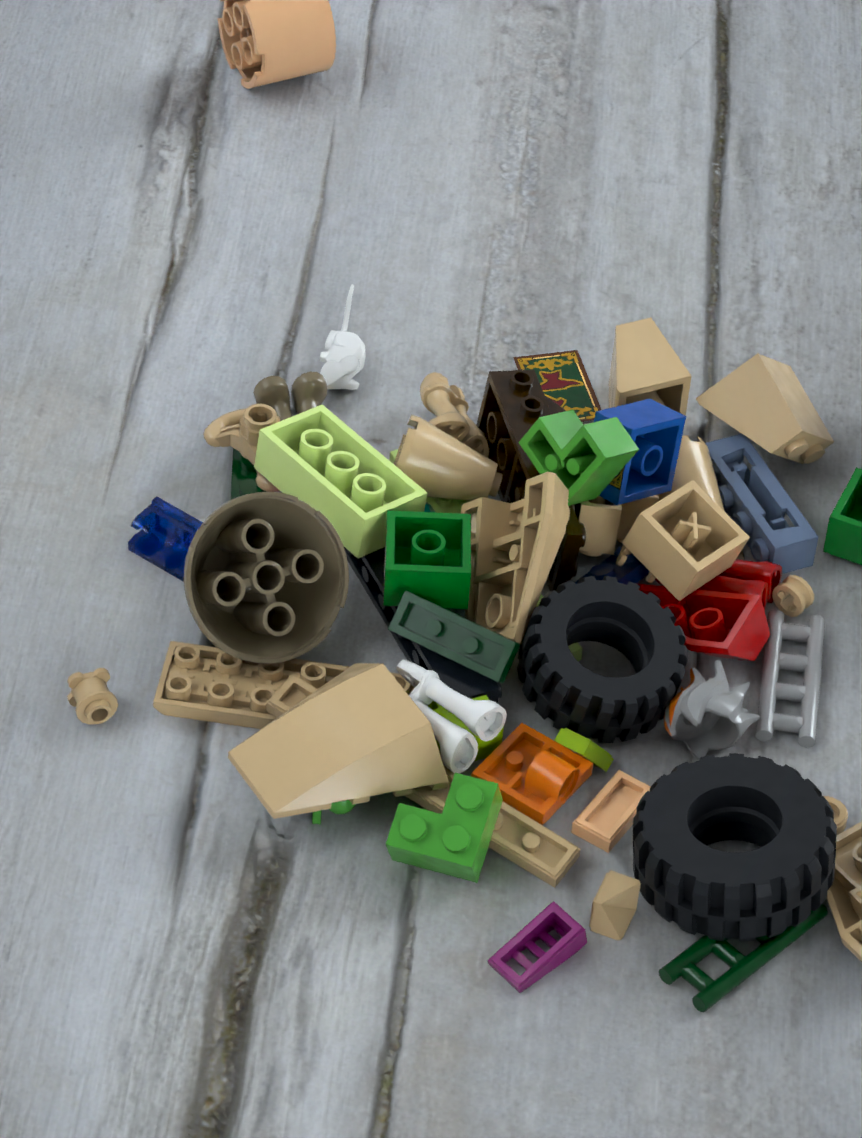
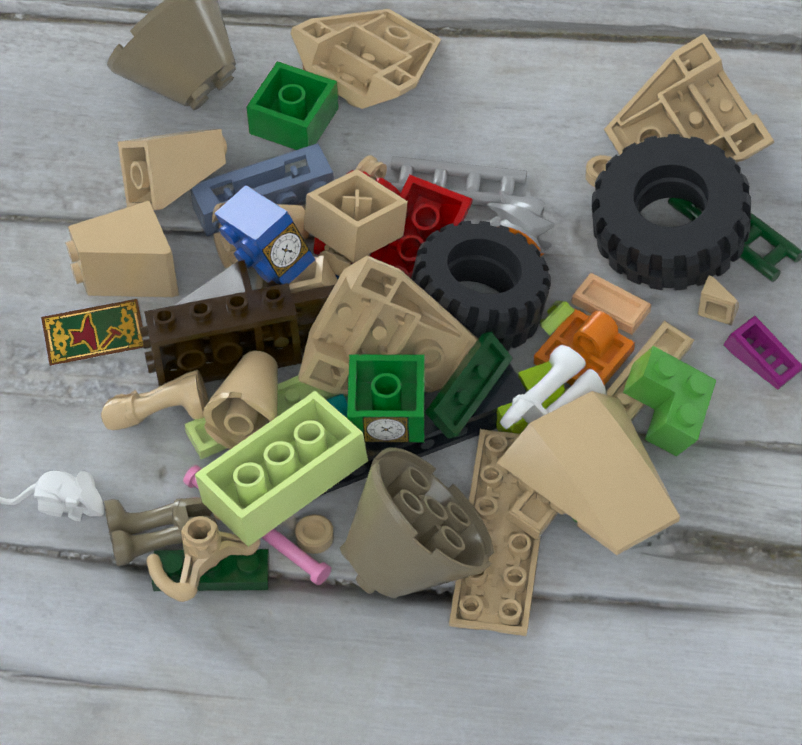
camera: 85 degrees left, 10 degrees up
(91, 696) = (529, 679): tan brick -> none
(164, 536) = (320, 625): clear blue hinge -> none
(579, 454) = (299, 267): bright green brick -> none

